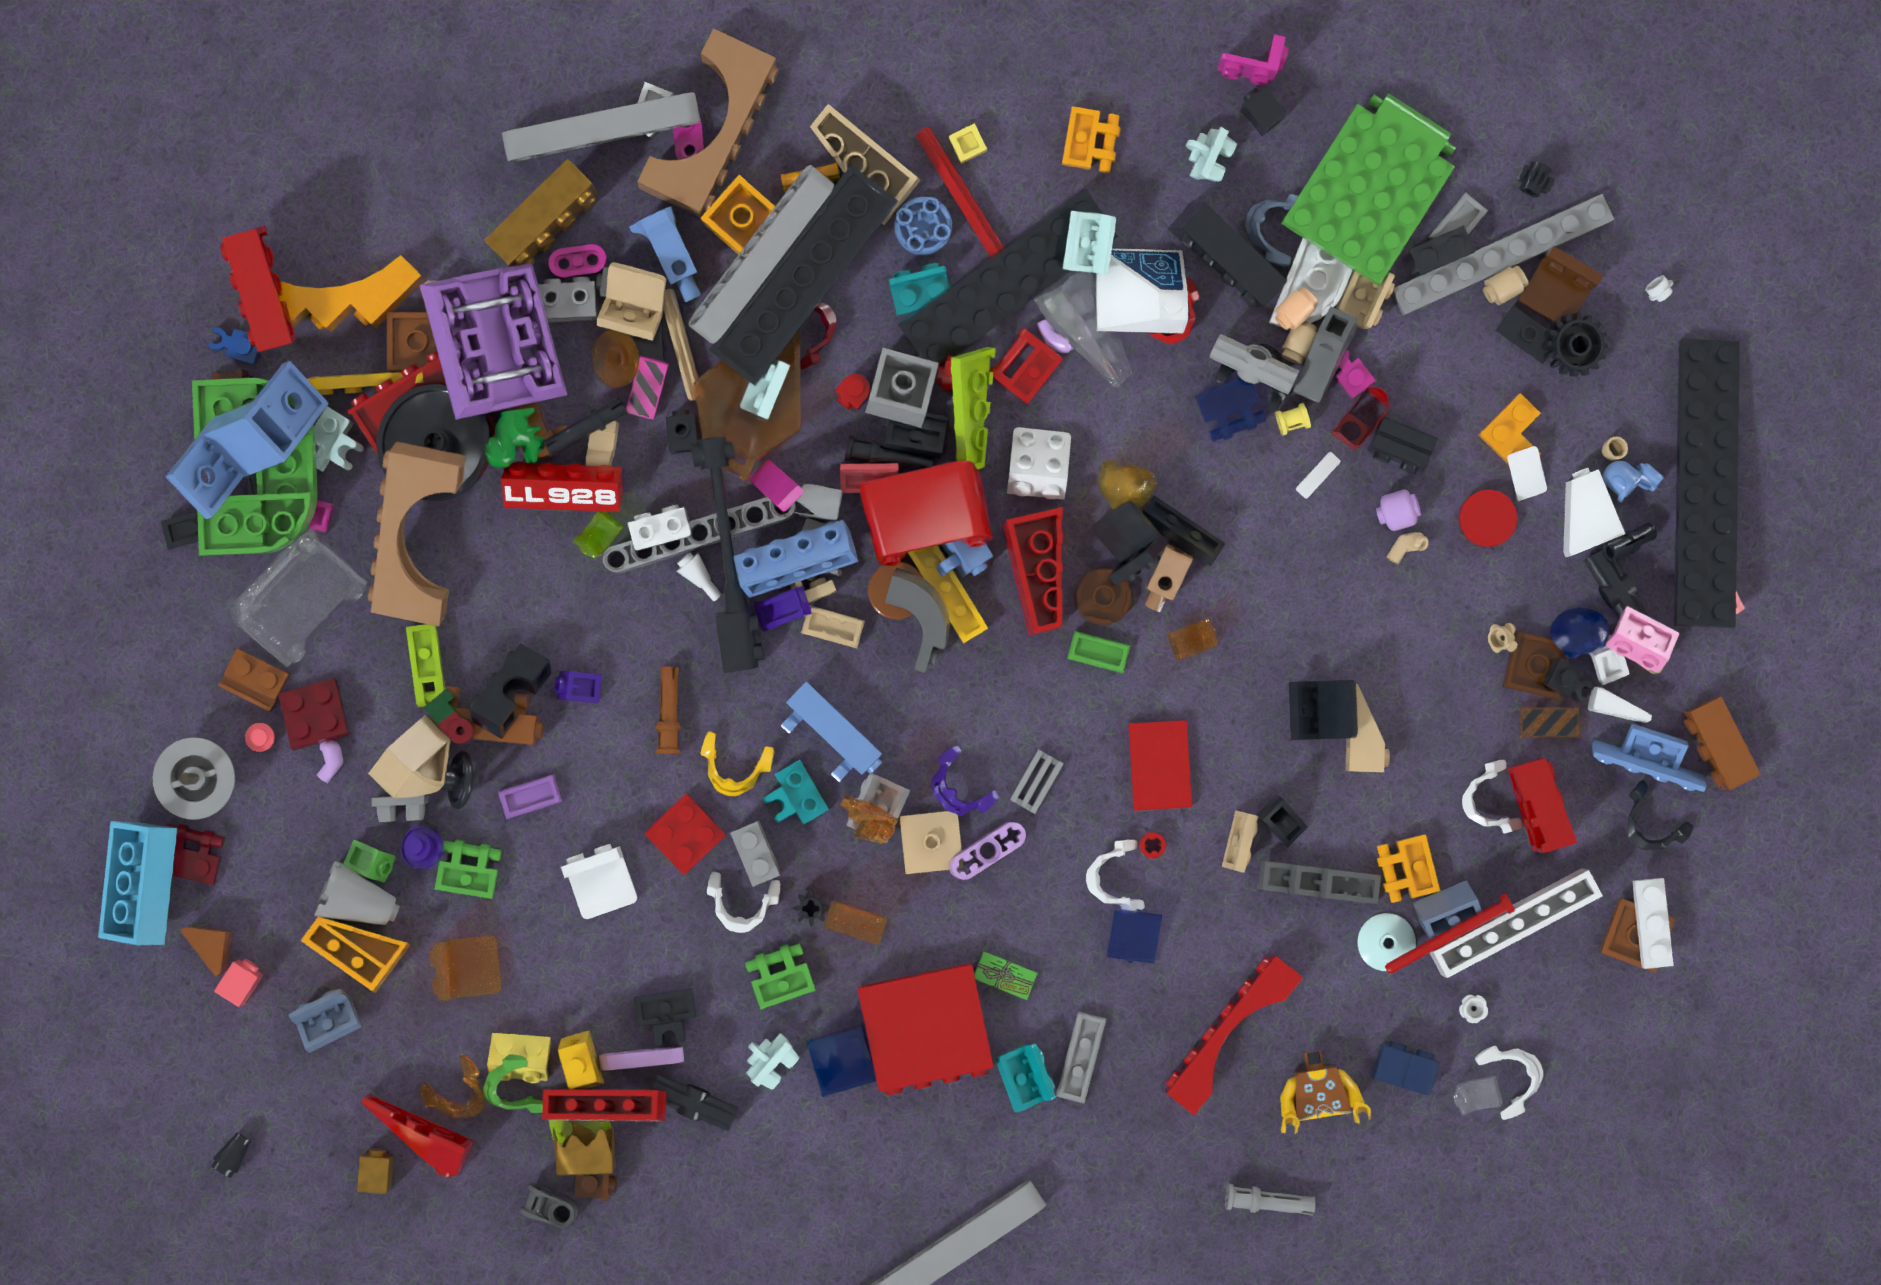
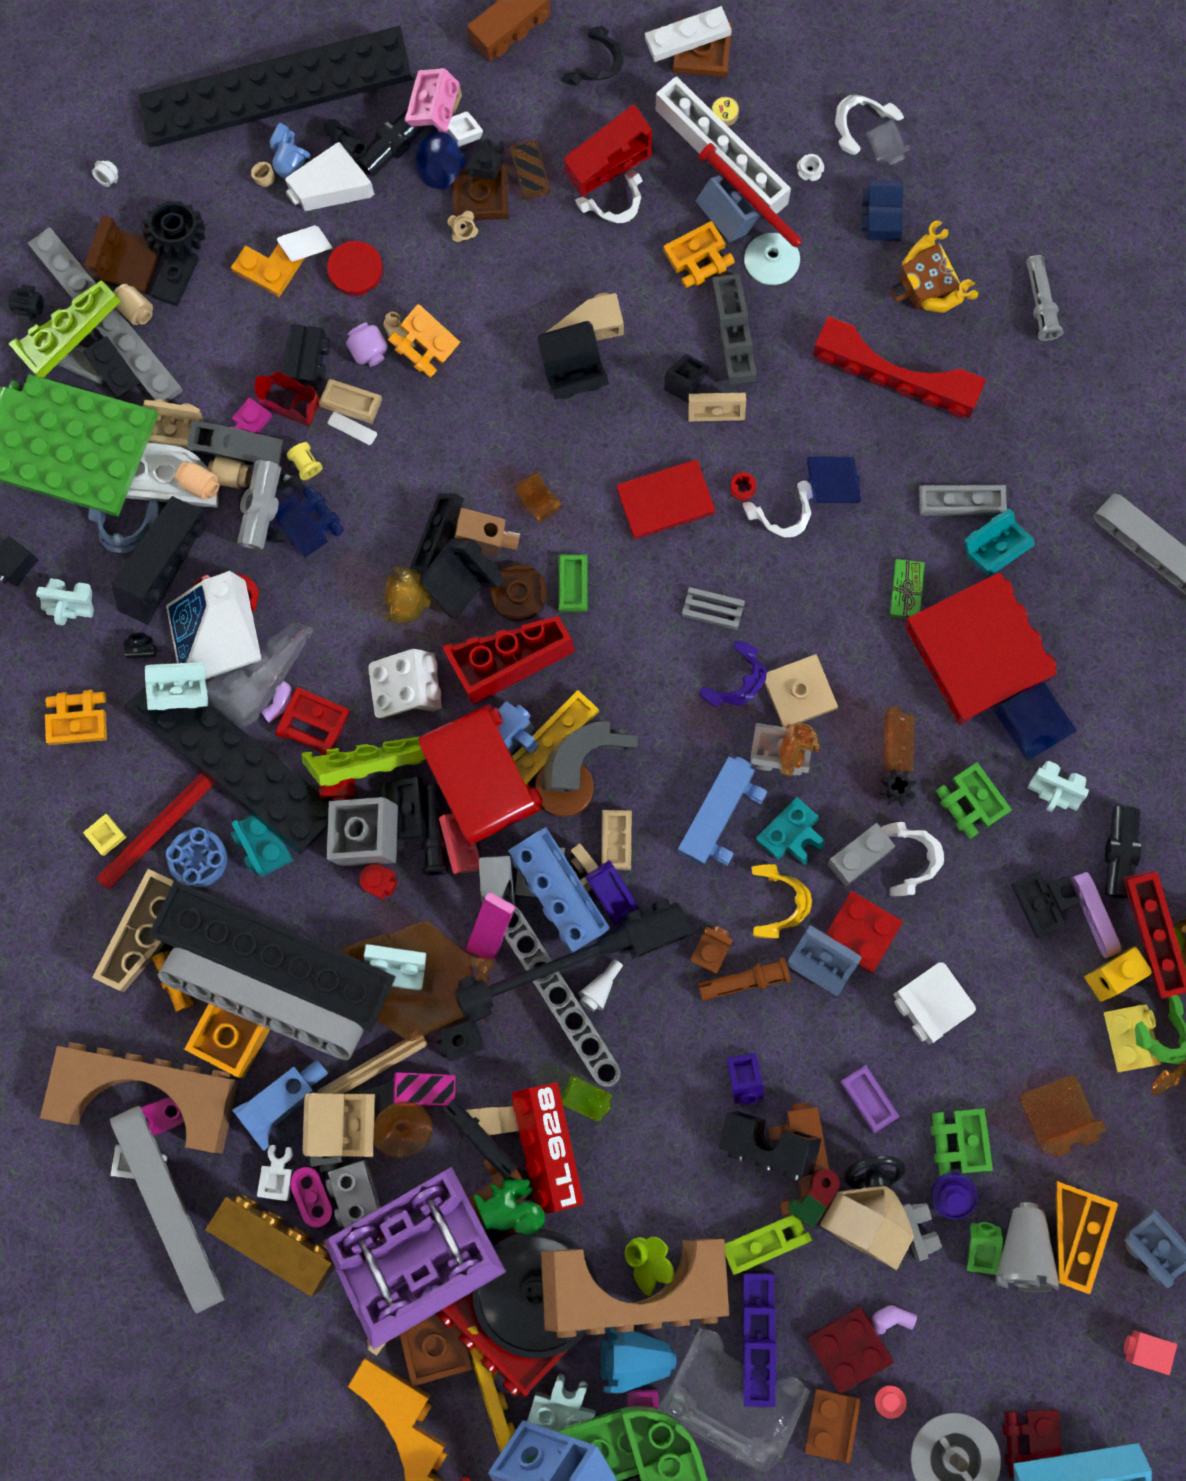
camera: 100 degrees left, 10 degrees down
(211, 946) = (1121, 1395): dark orange slope -> none
(345, 634) = (758, 1339): none -> dark purple slope
(353, 516) = (633, 1360): none -> dark azure cone
(436, 553) = (649, 1263): none -> lime plate
(603, 232) = (275, 1180): none -> white plate
(659, 528) = (564, 1035): white bracket -> none
(665, 789) = (823, 960): none -> sand blue bracket
(706, 688) = (712, 949): none -> dark orange bracket
(829, 320) = (313, 923): dark red helmet -> none
(973, 868) = (783, 616): lavender beam -> none
(1147, 216) = (139, 646): none -> black plate
(1345, 480) = (350, 401): none -> tan tile
(1393, 574) = (429, 335): none -> light orange plate
(1489, 205) = (56, 338): none -> lime wing
(1560, 939) = (726, 110): none -> tile
(1610, 704) = (498, 122): white slope -> none
(1651, 754) = (535, 74): medium blue bracket -> none

